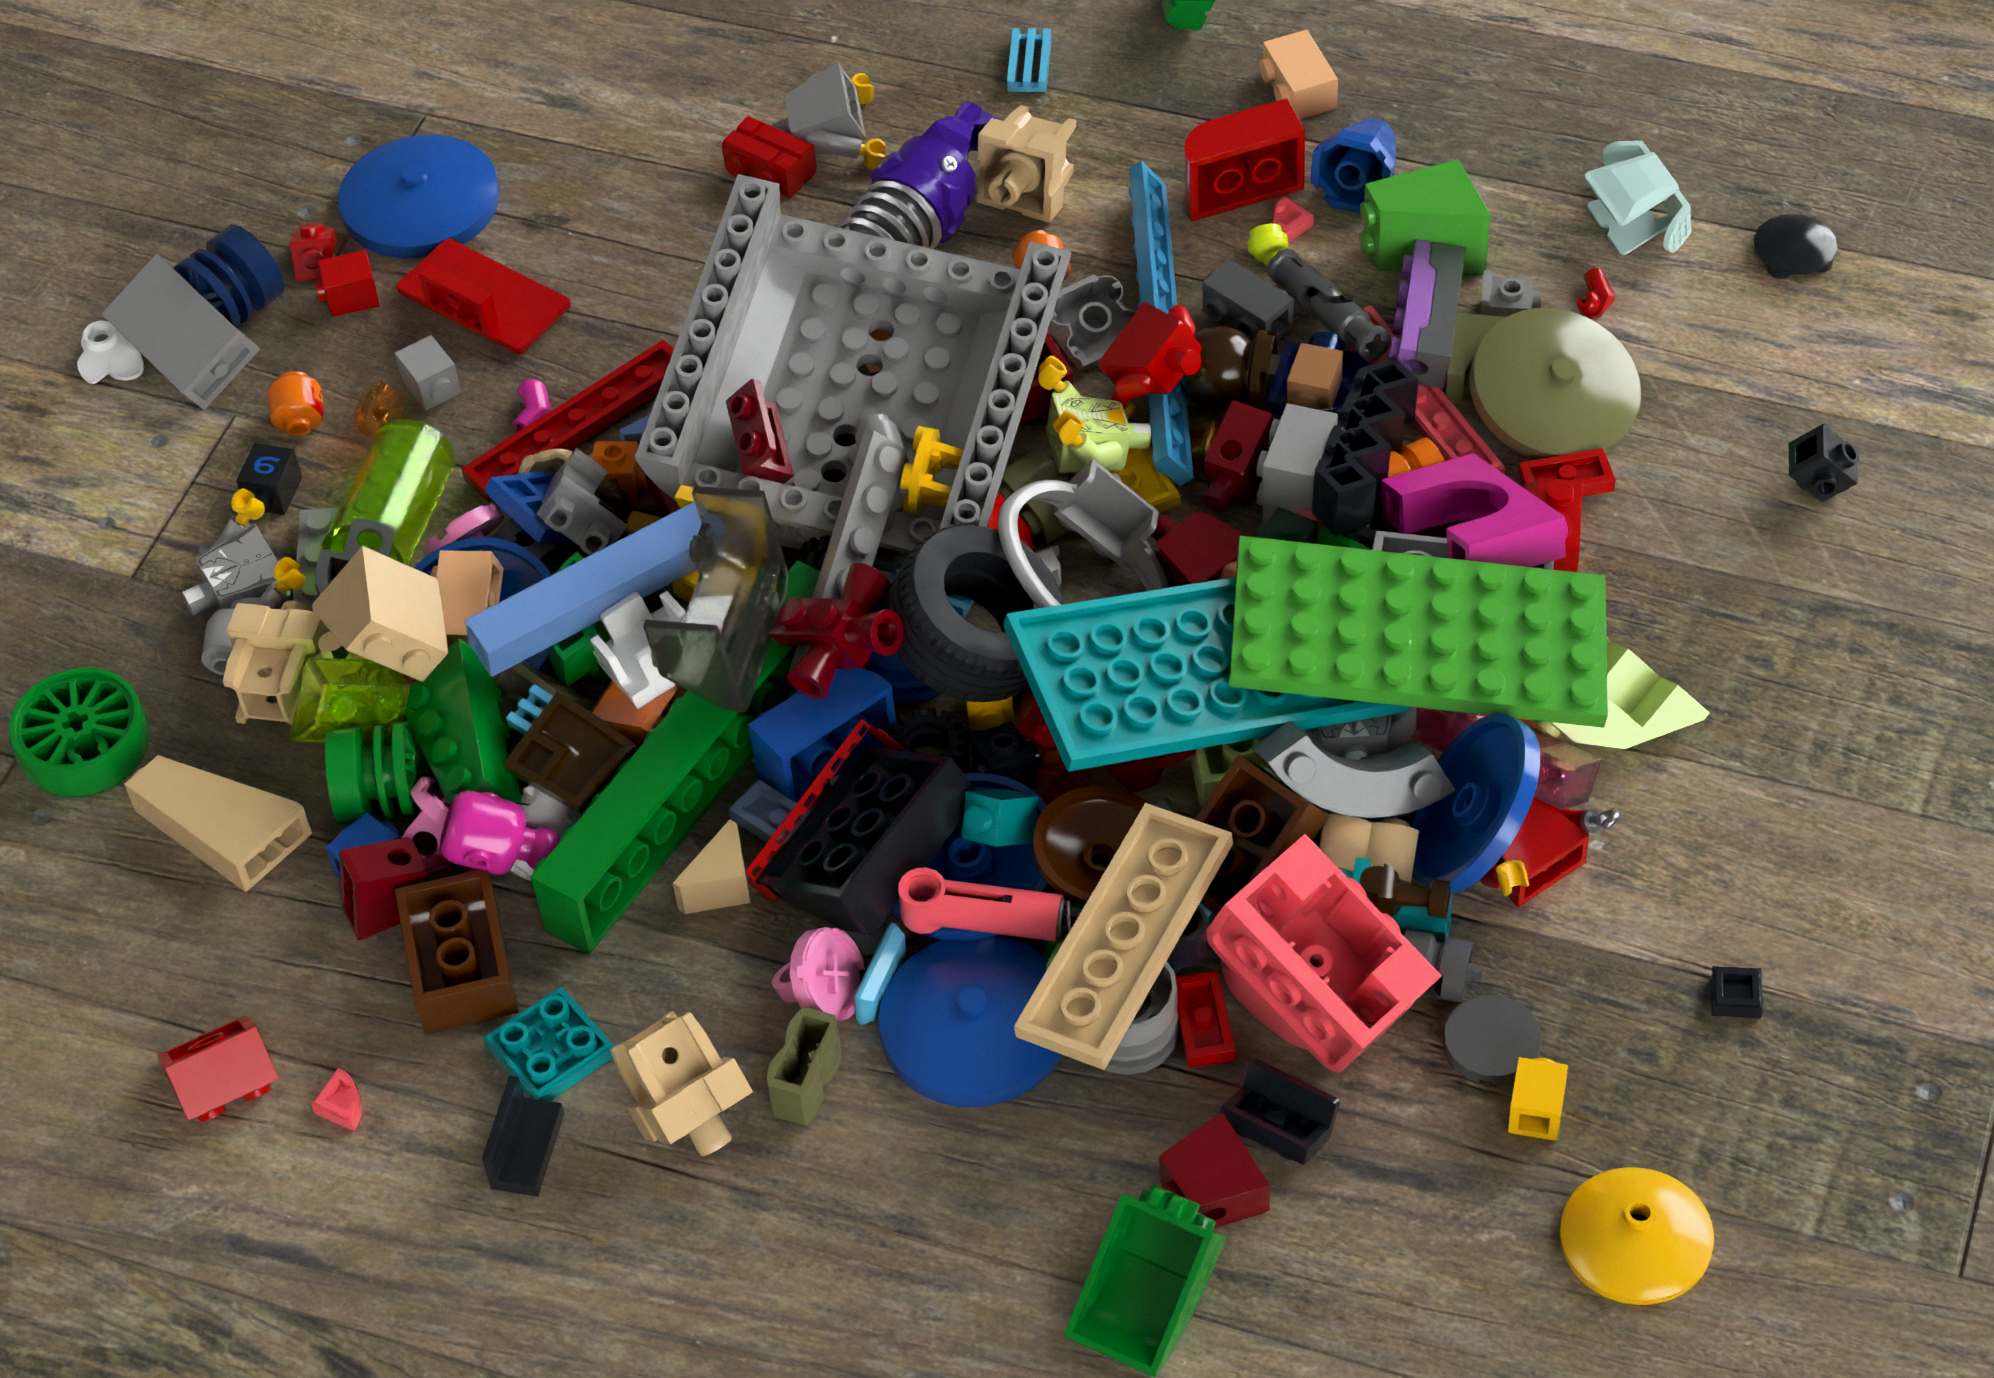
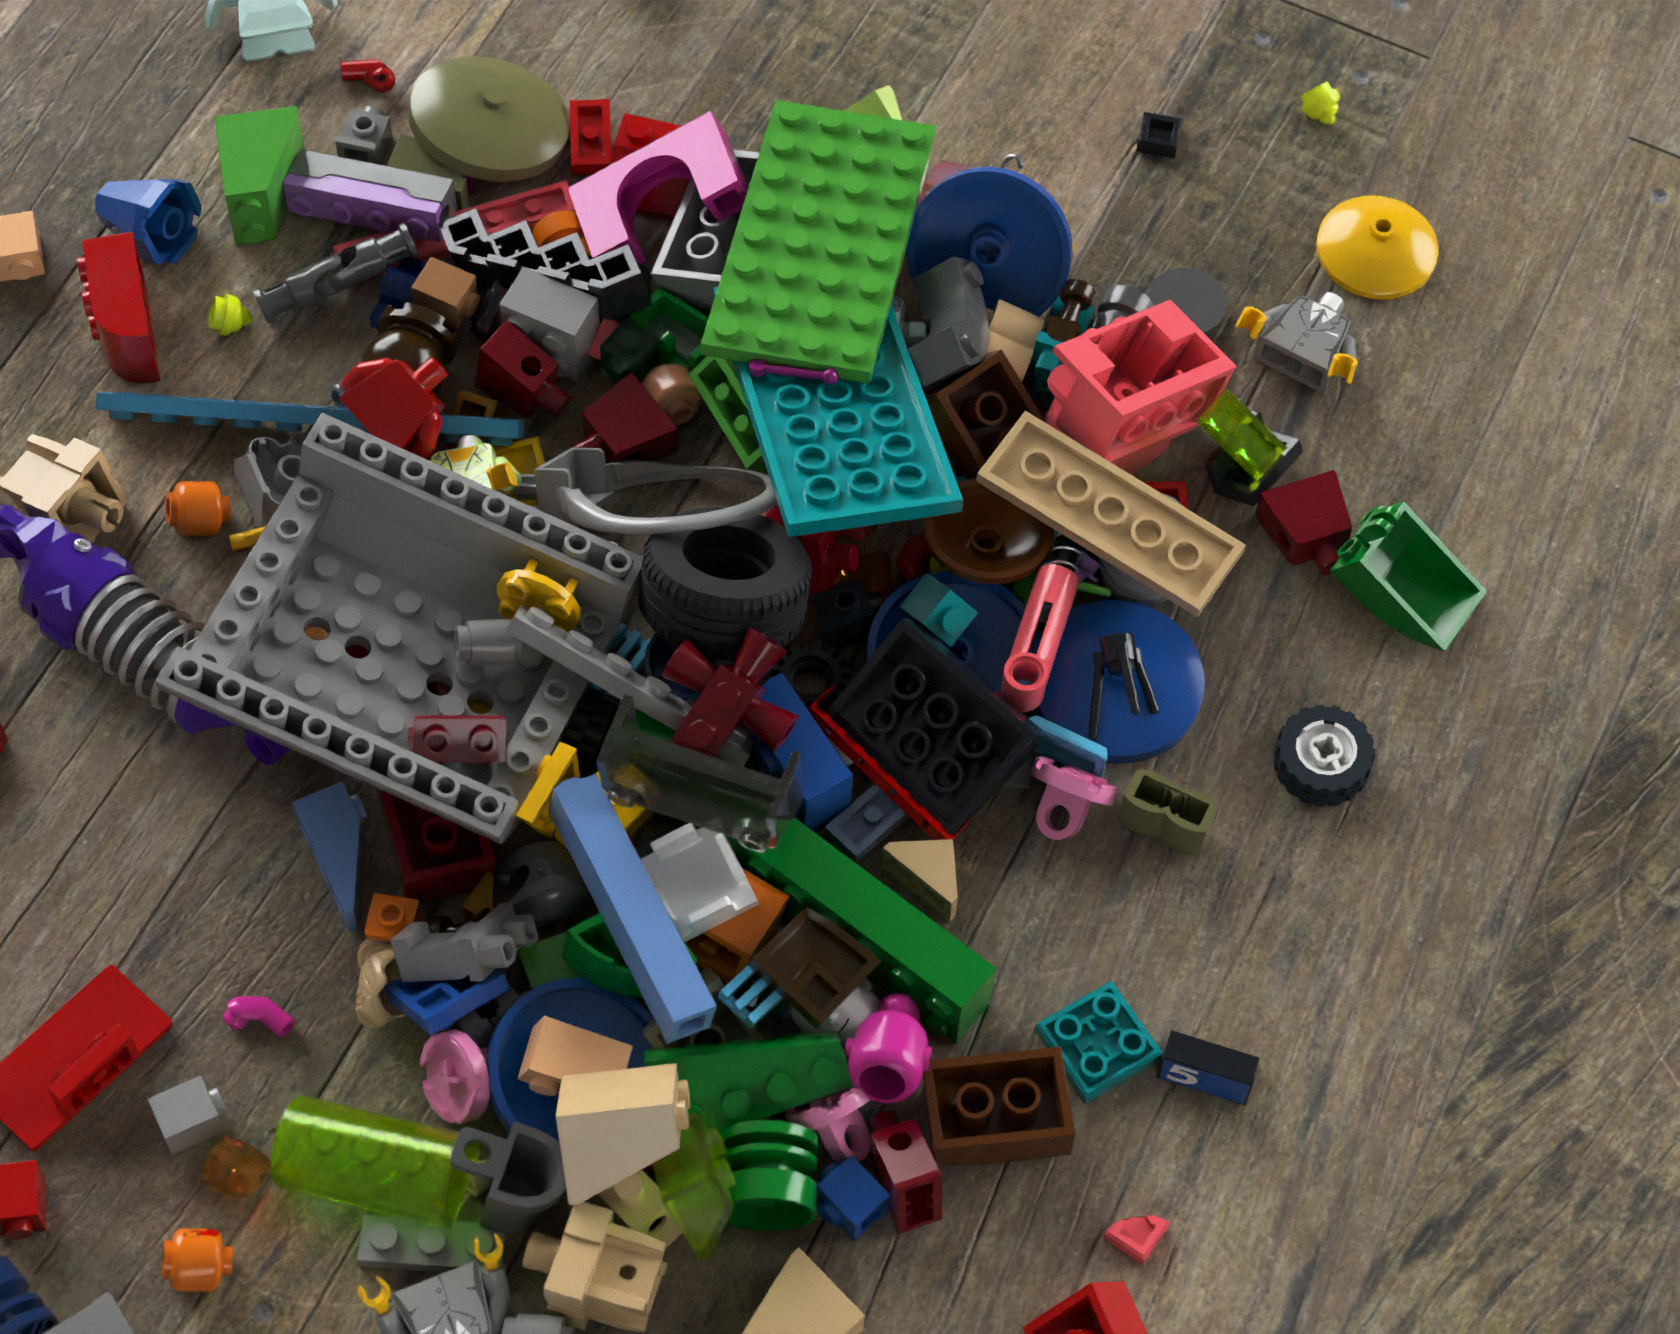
camera: 90 degrees left, 10 degrees up
(272, 476) = (306, 1290): black brick -> none
(576, 418) = (297, 969): red plate -> none
(683, 1089) = (1195, 908): tan piece -> none
(890, 1236) = (1322, 775): none -> black wheel
(968, 983) = (1121, 658): none -> black plant
(1225, 591) = (758, 367): none -> magenta hinge
(1246, 301) = (313, 339): dark grey brick -> none
(1287, 1077) = (1241, 434): none -> clear neon green plate
(1292, 218) = (189, 296): coral tile -> none
(1461, 1152) = (1304, 340): none -> light grey torso
(1537, 1098) = (1254, 279): yellow brick -> none
(1832, 1150) = (1325, 103): none -> neon yellow plate

